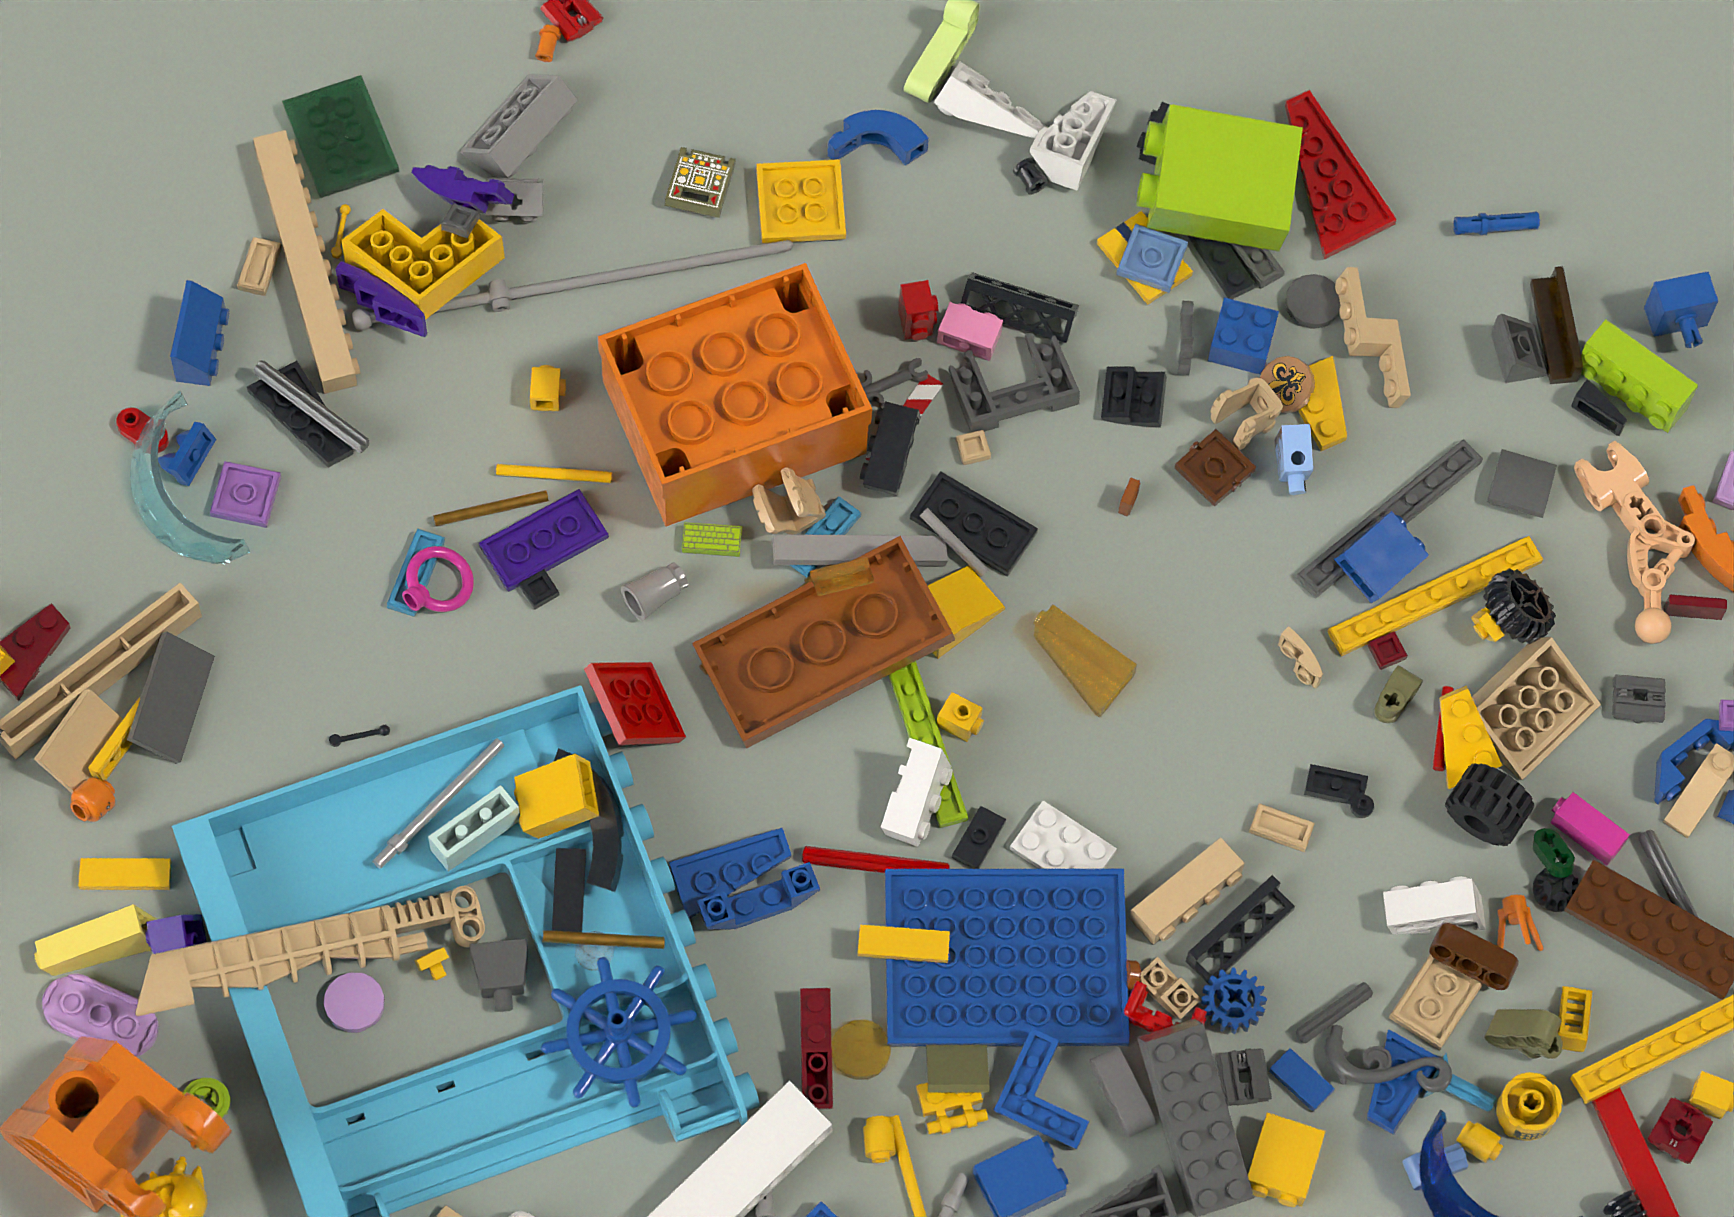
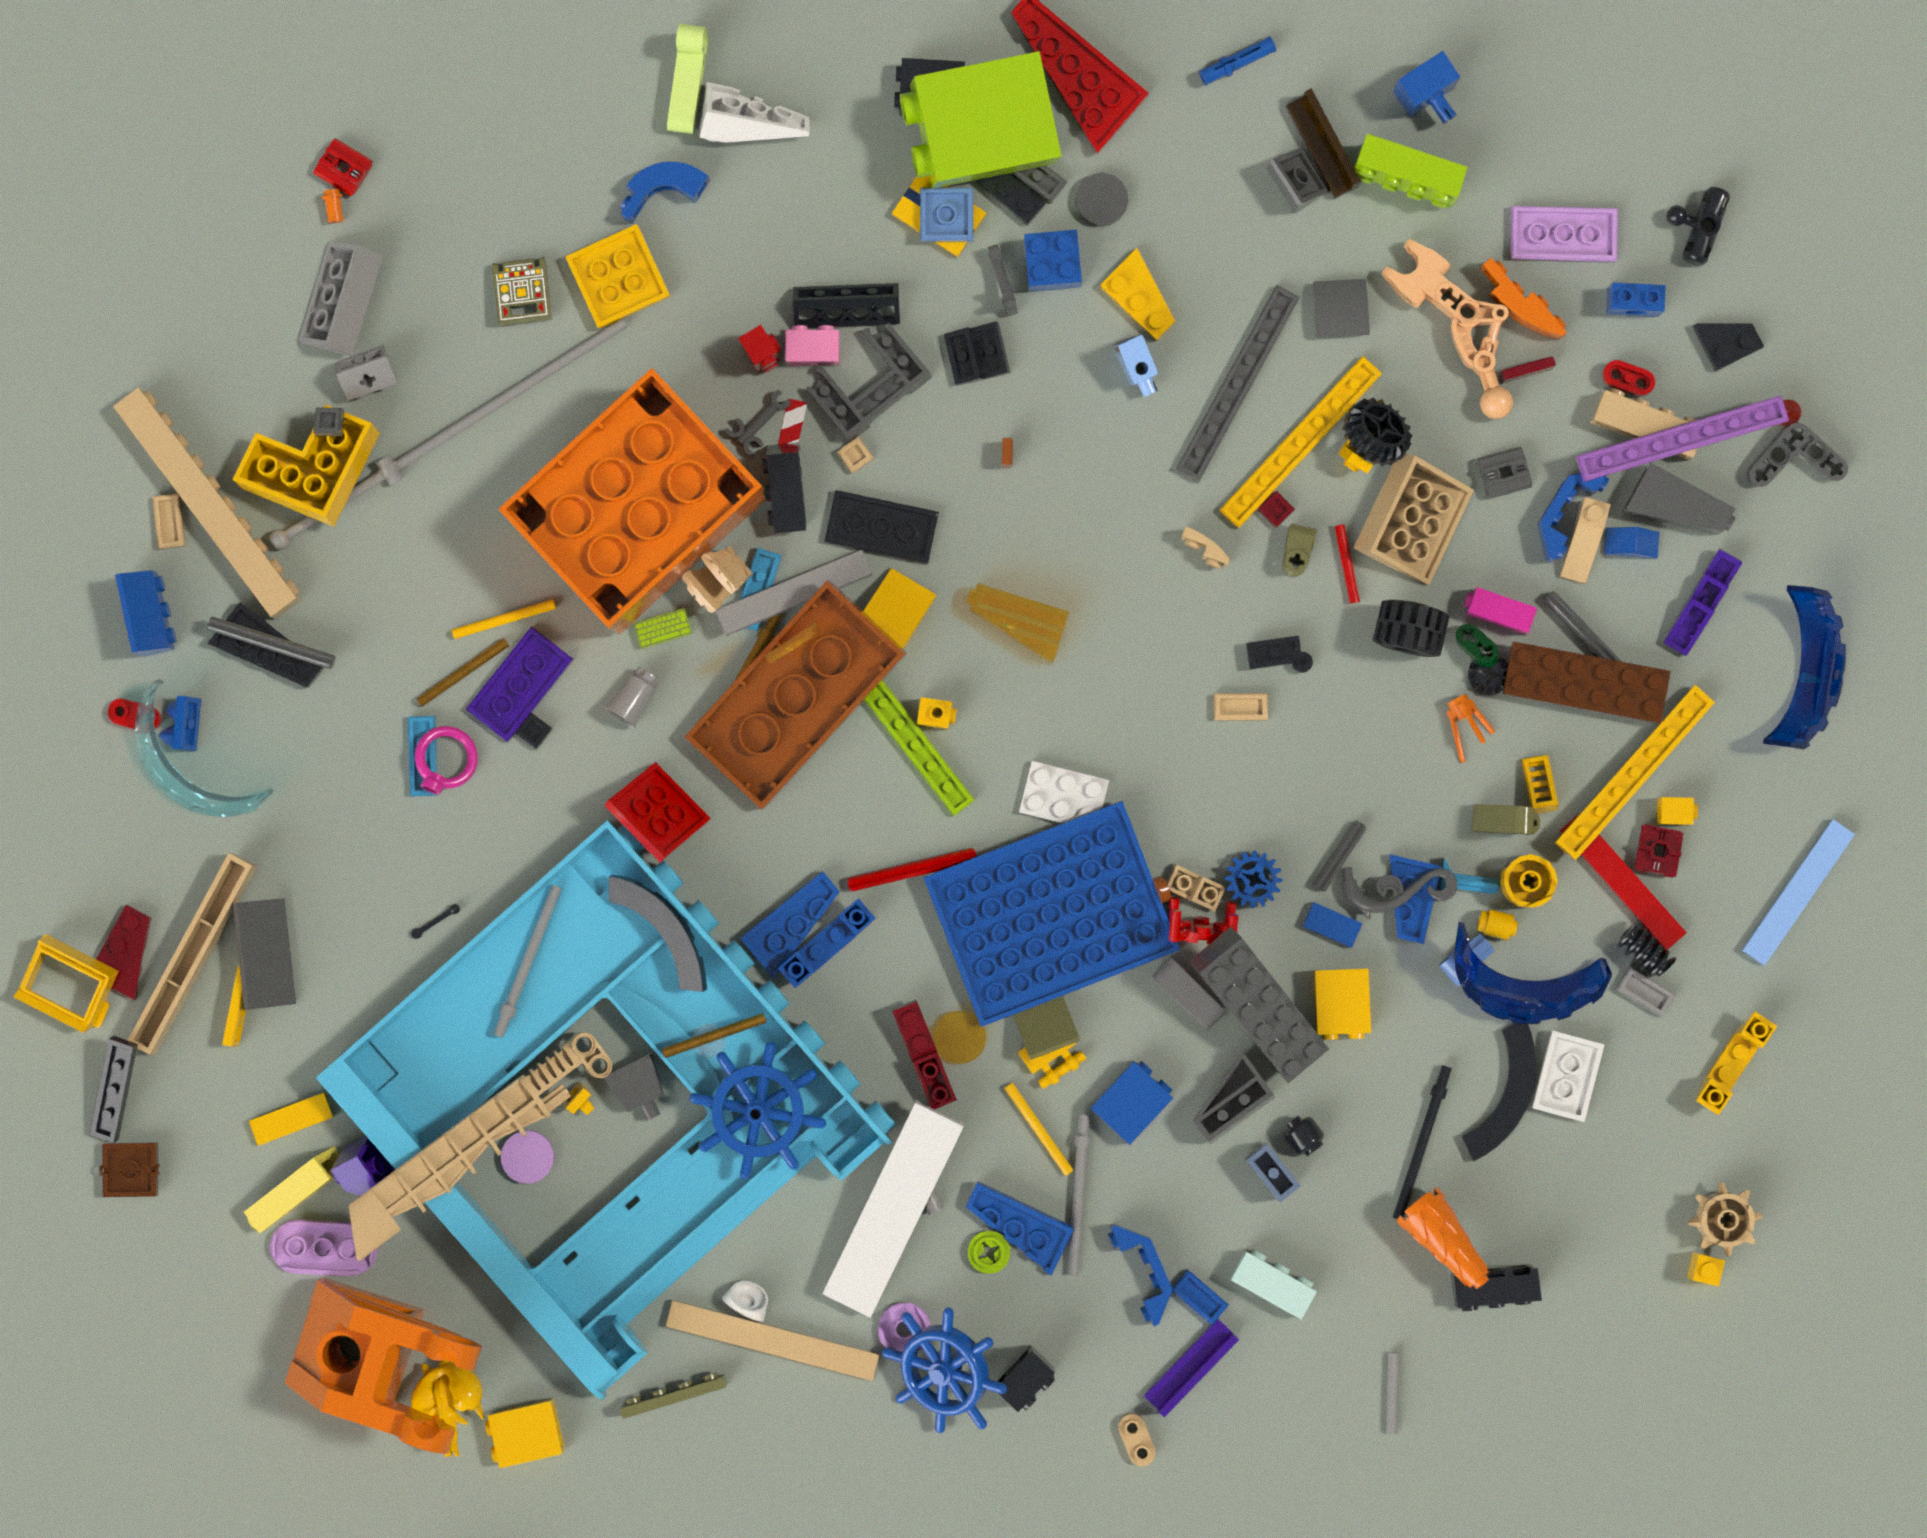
camera: 10 degrees left, 20 degrees up
(78, 740) = (204, 1023): tan tile -> none
(92, 799) = (237, 1067): orange head -> none
(220, 1095) = (431, 1295): lime gear -> none
(245, 494) = (247, 740): medium lavender tile -> none
(336, 251) = (221, 437): yellow hinge -> none
(340, 136) = (188, 369): clear green plate -> none
(387, 302) = (294, 520): dark purple slope -> none
(456, 188) = (314, 388): dark purple slope -> none
(474, 828) = (567, 977): light aqua brick -> none
(546, 388) = (466, 543): yellow brick -> none
(556, 796) = (625, 924): yellow brick -> none
(569, 890) = (667, 998): black tile -> none
(879, 1139) = (1004, 1111): yellow brick -> none
(903, 943) = (963, 938): yellow tile -> none
(917, 793) = (925, 801): white wedge -> none
(954, 542) = (872, 554): light grey bar -> none
(979, 838) = (990, 814): black plate -> none
(1019, 1097) = (1121, 1039): blue plate -> none
(1035, 181) = (801, 171): black bush -> none
(1071, 141) = (833, 129): white wedge -> none
(1187, 891) = (1181, 797): tan brick -> none
(1215, 467) = (1071, 395): reddish brown plate -> none
(1235, 920) = (1229, 809): black fence -> none
(1236, 1062) = (1268, 937): dark grey piece -> none
(1252, 394) = (1093, 319): tan piece -> none
(1290, 381) = (1106, 294): tile -> none
(1373, 337) = (1166, 219): tan bracket -> none
(1382, 556) = (1244, 427): blue brick -> none
(1432, 905) = (1393, 733): white wedge -> none
(1435, 1002) = (1421, 808): tan tile -> none
(1464, 736) = (1371, 574): yellow wing -> none
(1474, 956) = (1440, 766): reddish brown beam -> none
(1598, 408) = (1381, 209): black slope -> none

